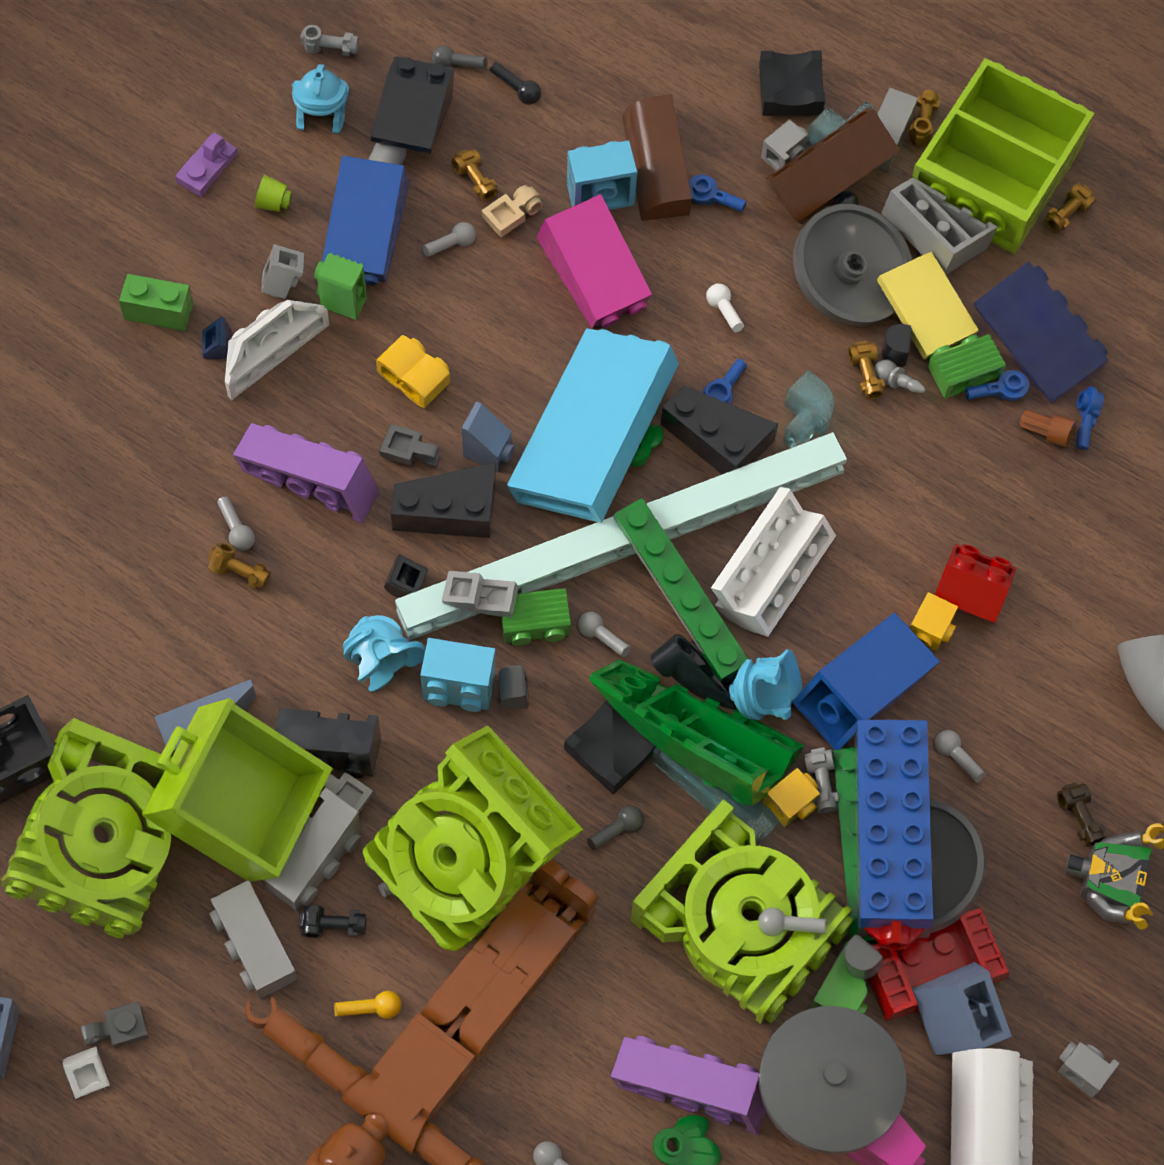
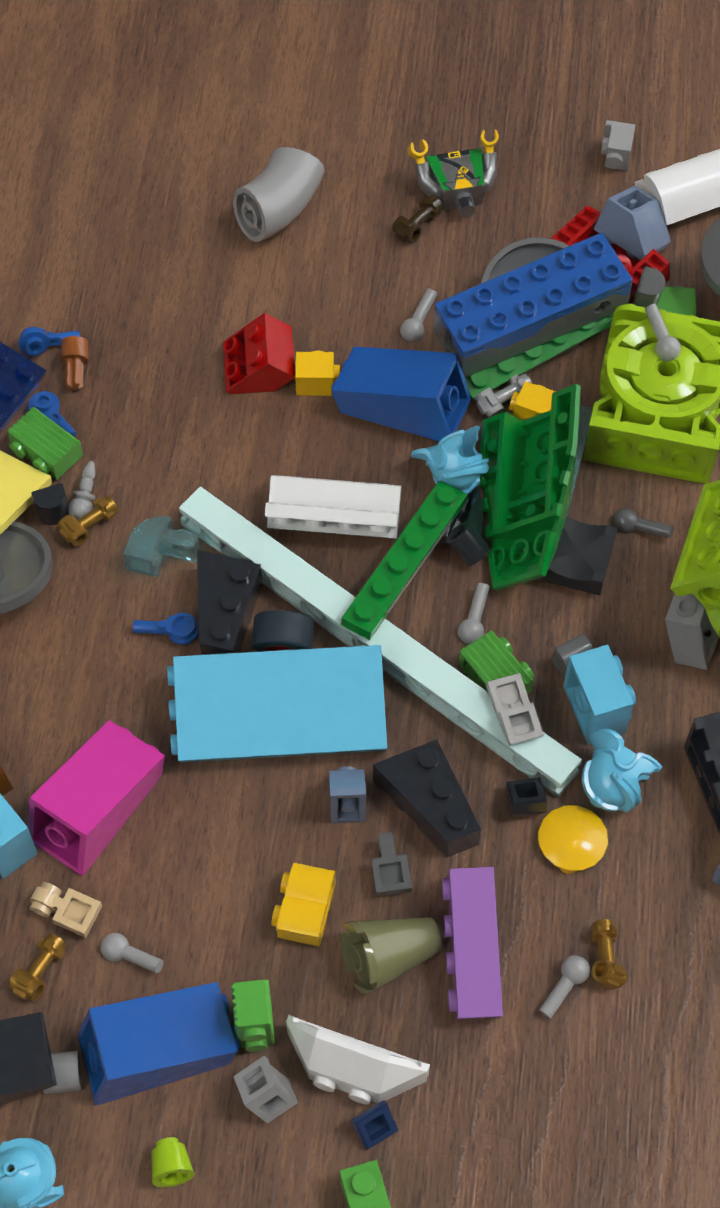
camera: 115 degrees left, 5 degrees down
(338, 403) = (388, 948): none -> olive cone
(350, 597) = (573, 838): none -> yellow dish
(662, 460) = (281, 631): none -> black wheel
(719, 297) = (69, 678): white bar -> none

